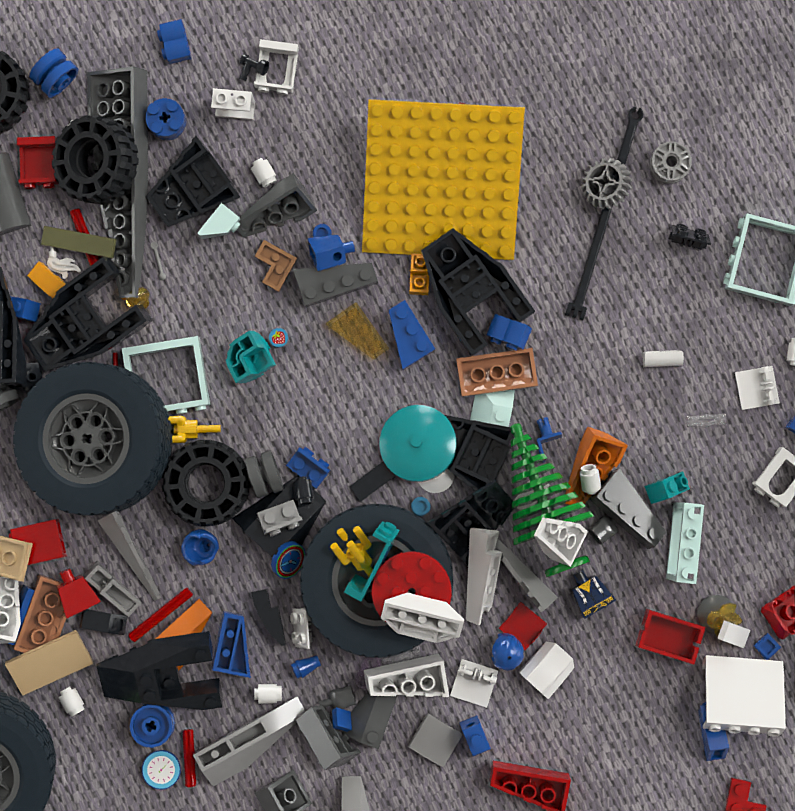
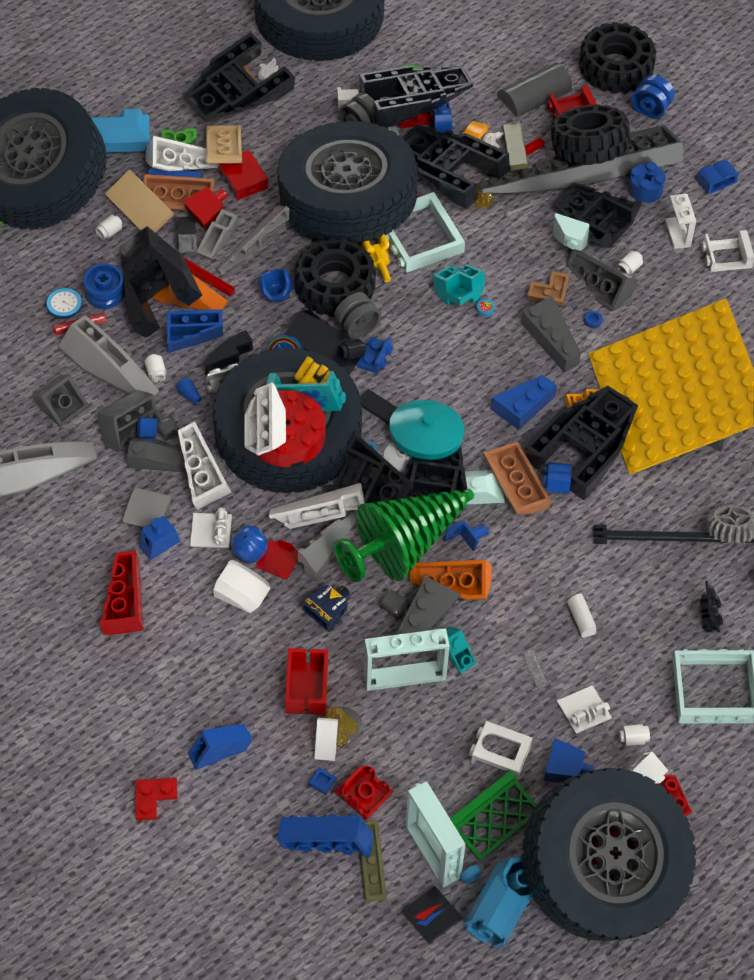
camera: 75 degrees right, 30 degrees down
(261, 66) = (722, 239): black piece -> none
(279, 517) = (321, 334): light grey bracket -> none
(329, 251) = (578, 320): blue torso -> none
(359, 331) = (514, 366): clear yellow wing -> none
(560, 539) = (376, 519): white wedge -> none
(590, 479) = (441, 570): white brick -> none
(744, 695) = (266, 754): white panel -> none

